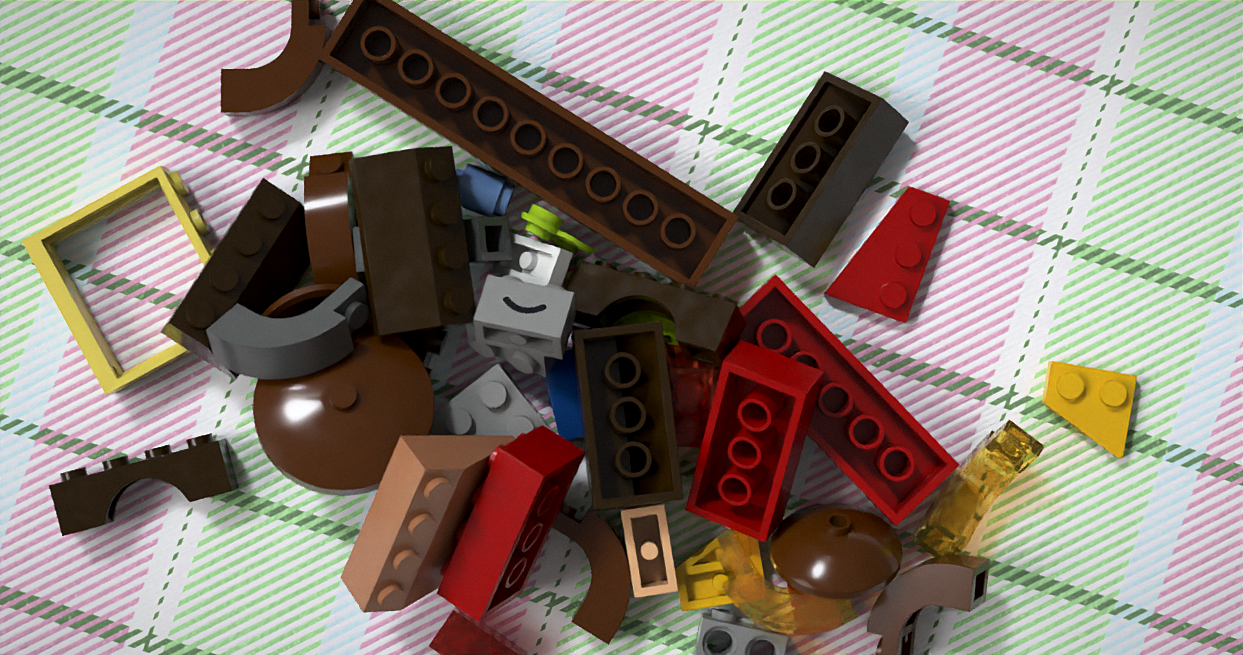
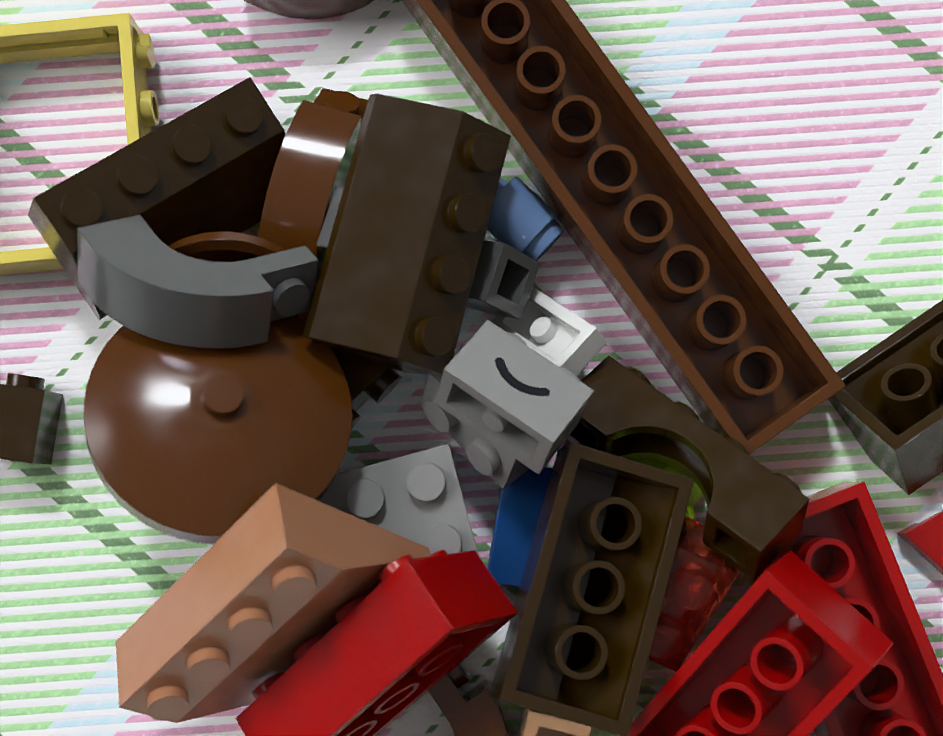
camera: 20 degrees right, 5 degrees down
(547, 226) = (586, 292): lime plate -> none

